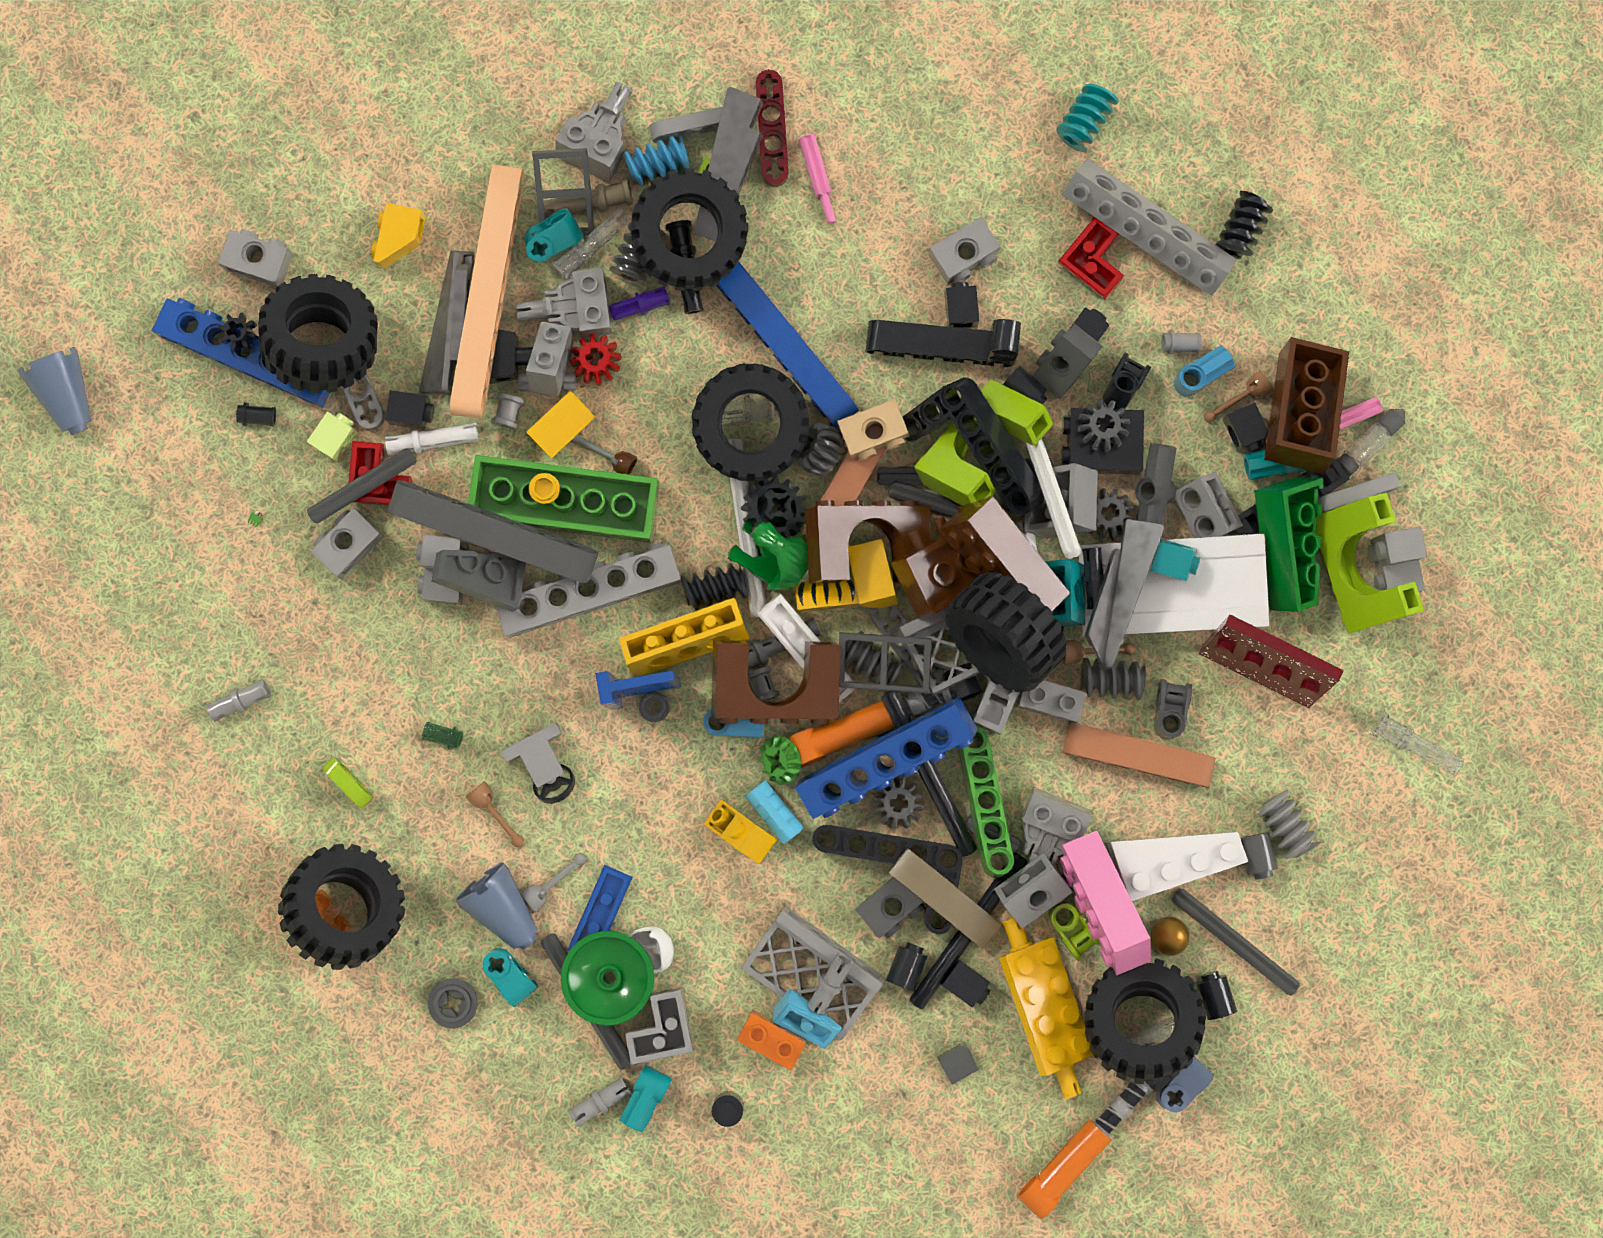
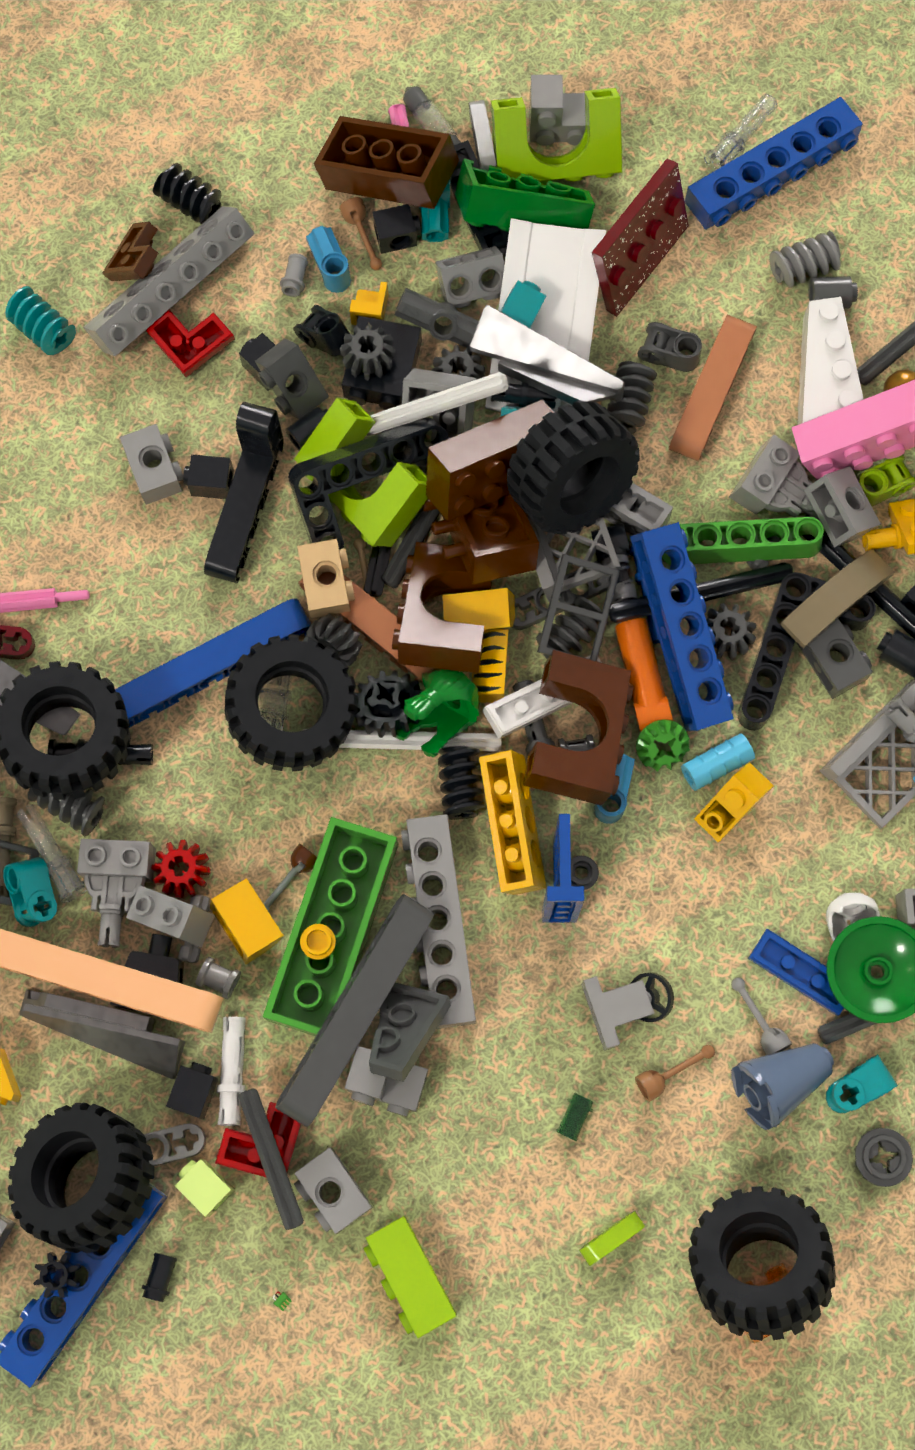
camera: 80 degrees left, 10 degrees down
(238, 700) = (494, 1356): light grey pin -> none
(288, 619) = (409, 1278): none -> lime brick
(640, 303) = (129, 808): dark purple axle -> none
(1053, 701) = (652, 445): light grey brick -> none
(1162, 419) = (369, 304): none -> yellow panel
(1165, 183) = (134, 254): none -> reddish brown plate
(1447, 832) = (832, 120): none -> blue brick

